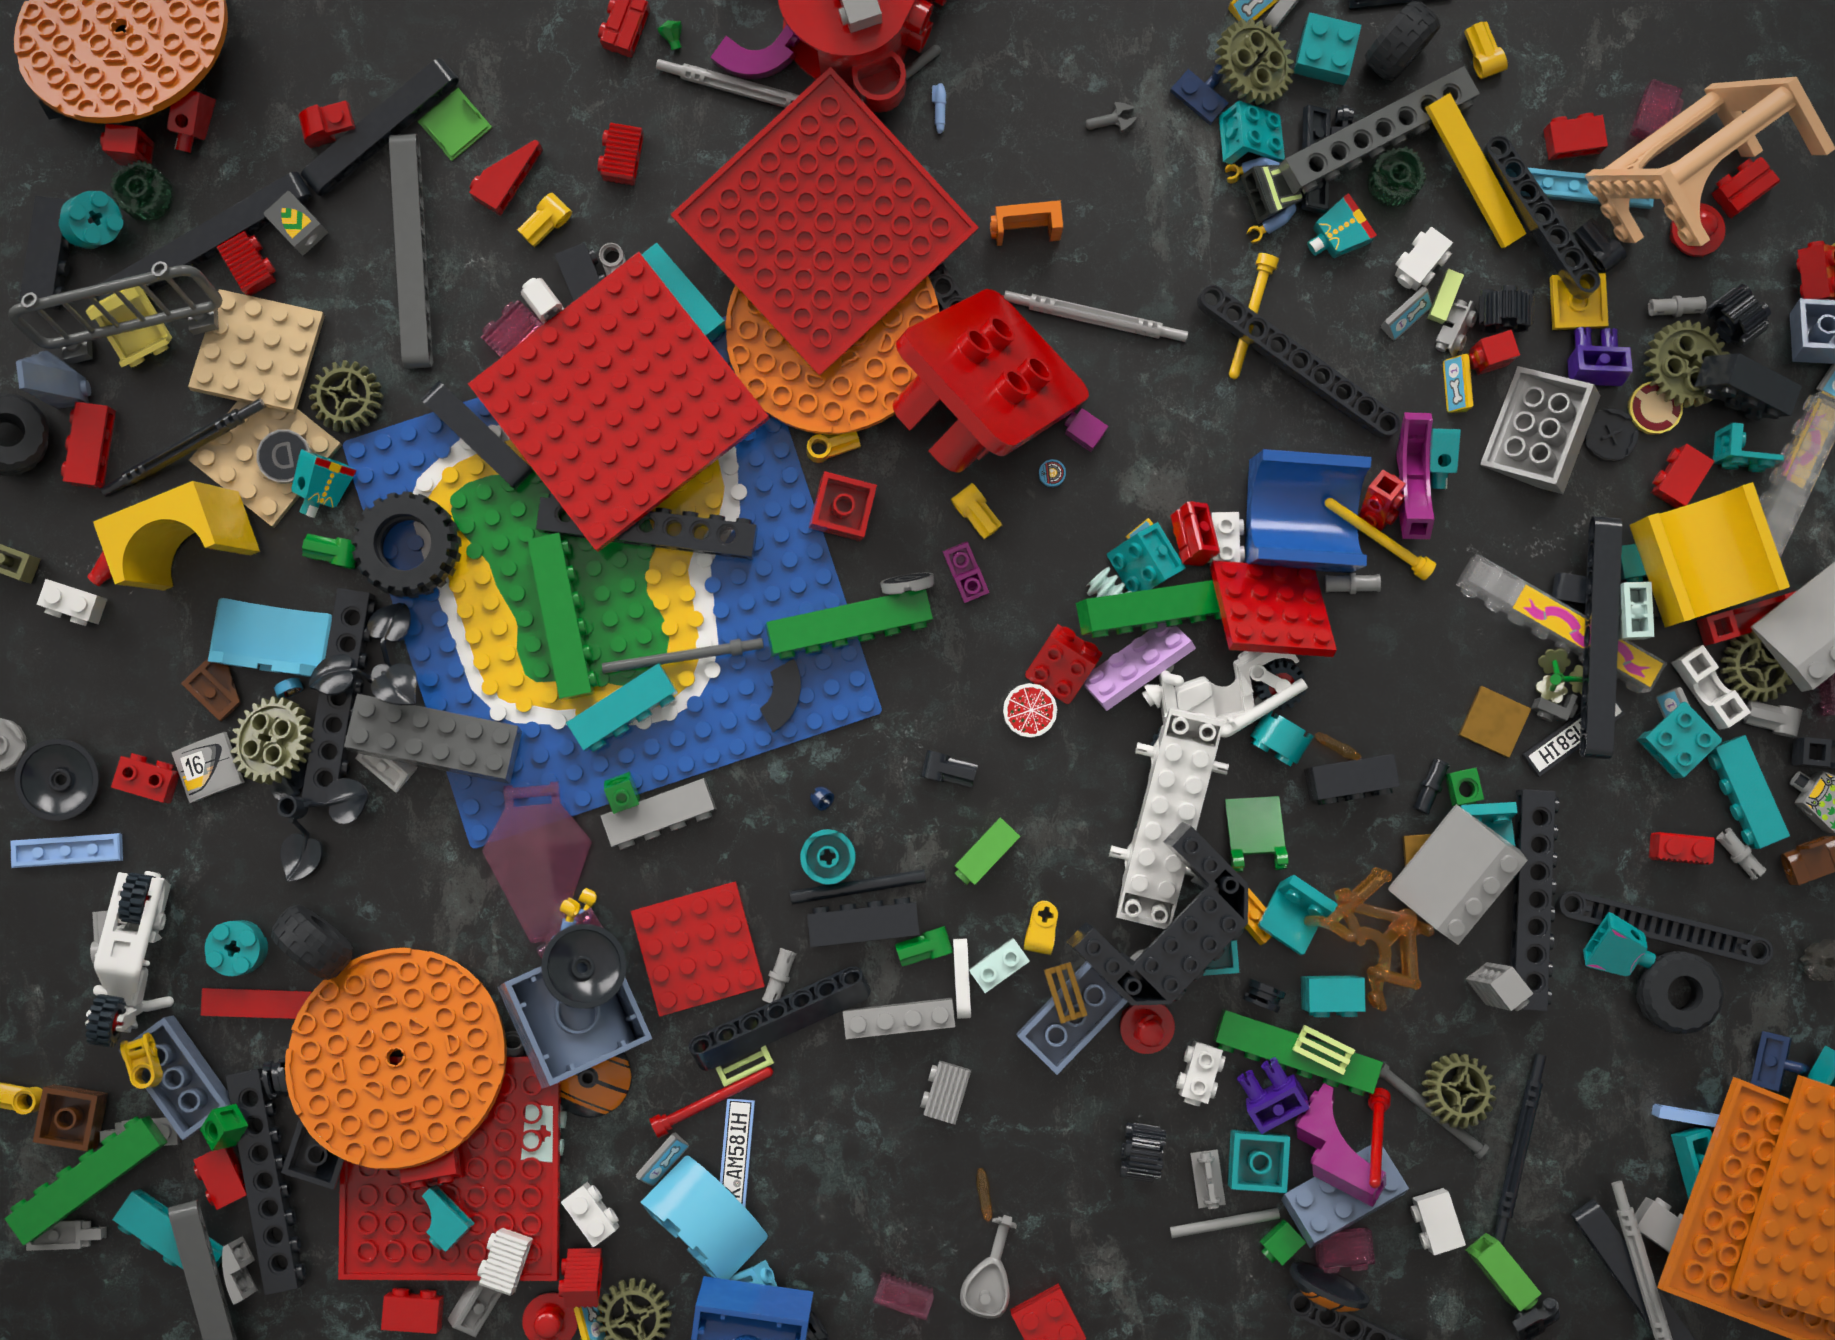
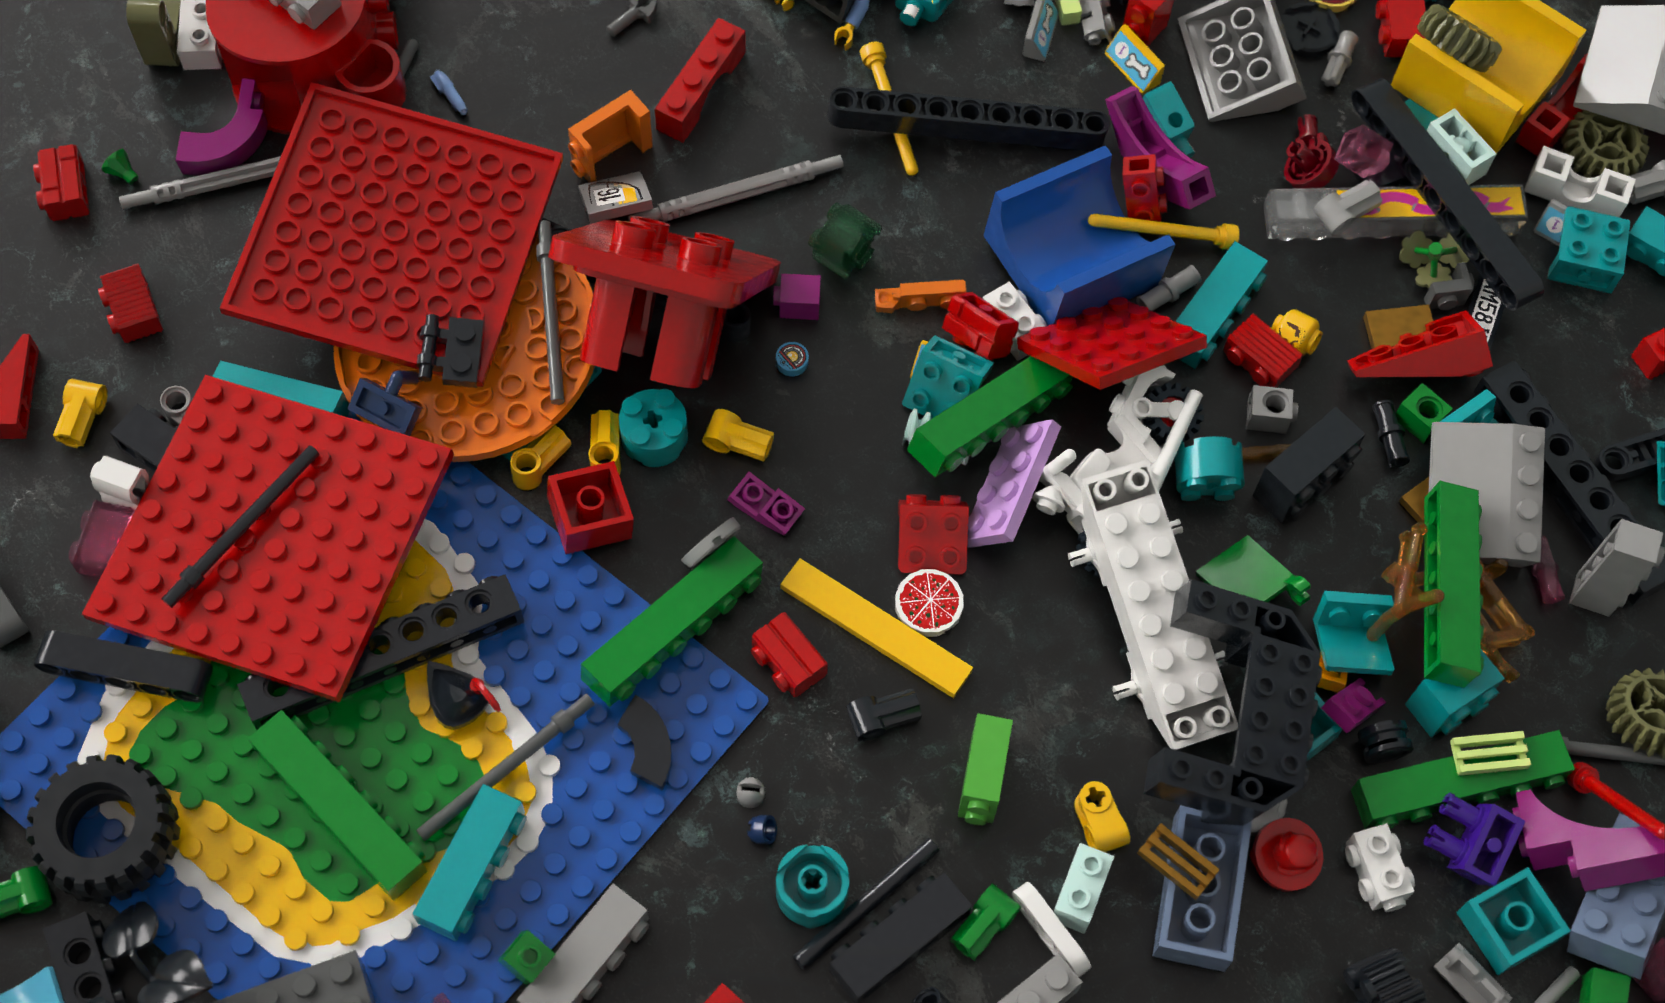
camera: 35 degrees left, 20 degrees down
(550, 406) = (193, 575): none -> black bar
(678, 587) = (457, 696): none -> black piece
(745, 350) = (384, 405): none -> dark blue plate
(818, 344) = (462, 351): none -> black plate
(833, 762) = (750, 799): none -> light grey hinge
(884, 460) = (605, 438): none -> yellow piece
(907, 475) = (653, 427): none -> teal brick
(911, 690) = (788, 655): none -> red brick
(921, 301) = (550, 313): none -> dark grey bar
(983, 706) = (876, 628): none -> yellow tile
(1004, 271) = (615, 197): none -> light grey slope
(1140, 200) = (683, 101): none -> red arch
(1143, 408) = (844, 240): none -> clear green brick
(1168, 481) = (918, 295): none -> orange hinge
(1257, 961) = (1352, 705): none -> magenta hinge
(1347, 714) = (1261, 418): none -> light grey brick
(1377, 928) = (1454, 566): none -> green brick
(1381, 614) = (1223, 296): none -> teal brick
(1383, 672) = (1262, 352): none -> red brick
(1418, 673) = (1299, 330): none -> yellow head
(1463, 950) = (1547, 575): none -> clear pink axle
(1505, 750) = (1446, 349): none -> red wedge
(1515, 605) = (1342, 210): none -> light grey piece
(1529, 544) = (1312, 159): none -> dark red pin
(1556, 564) = (1364, 151): none -> clear pink brick
(1614, 475) = (1339, 58): none -> light grey axle
(1692, 533) = (1459, 38): none -> olive gear

